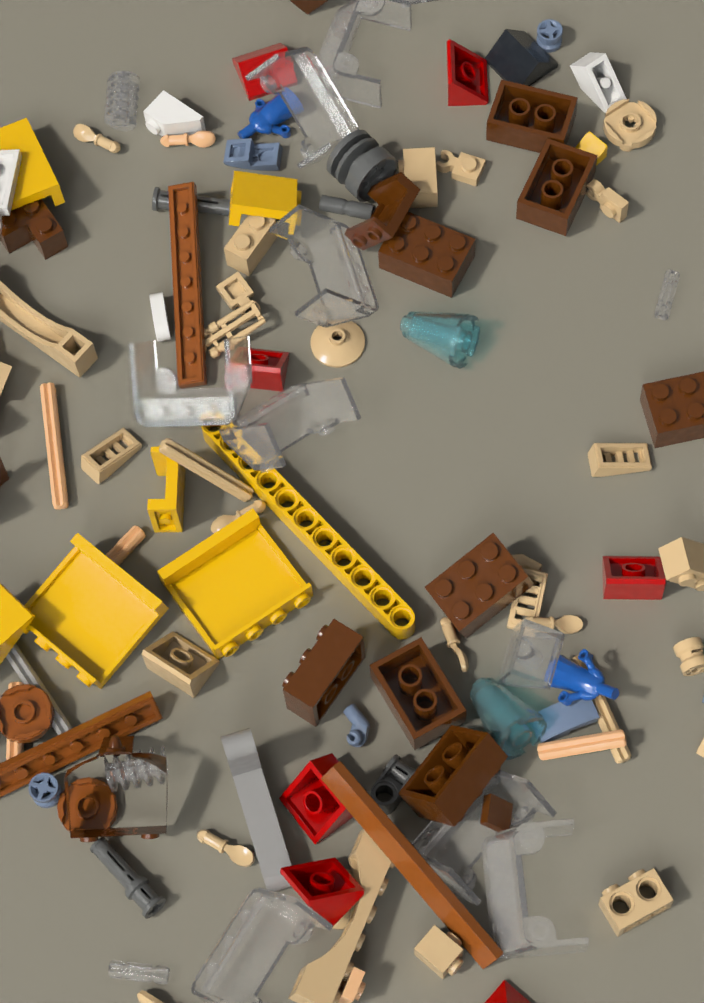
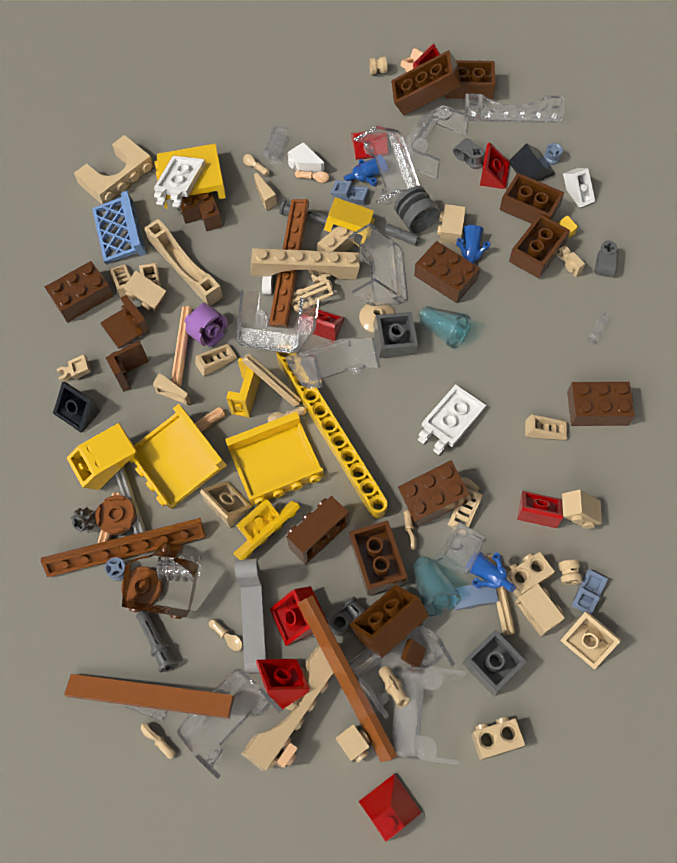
camera: 10 degrees right, 0 degrees up
(52, 514) = (168, 389): none -> tan slope
(85, 406) = (206, 325): none -> medium lavender brick
(125, 183) = (266, 193): none -> tan slope
(140, 951) = (150, 696): none -> dark orange tile
(162, 290) = (272, 261): none -> tan arch
(239, 683) = (261, 524): none -> yellow bracket
(360, 726) = (334, 571): sand blue arm -> none
(371, 364) = (395, 334): none -> dark grey brick
(394, 200) = (432, 233): reddish brown panel -> none
(423, 59) = (469, 153): none -> dark grey piece
(455, 197) = (472, 240): none -> blue piece
(464, 168) = (485, 222): tan plate -> none
(479, 863) = (394, 686): none -> tan pin
(480, 472) = (451, 418): none -> white tile
(566, 624) = (488, 531): tan piece -> none
(581, 744) = (482, 617): light nougat axle -> none
(610, 801) = (494, 662): none -> dark grey brick
(630, 137) = (594, 224): tan plate -> none
(639, 675) = (530, 577): none -> tan brick
(659, 187) = (606, 259): none -> dark grey piece
(659, 716) = (540, 609): none -> tan brick

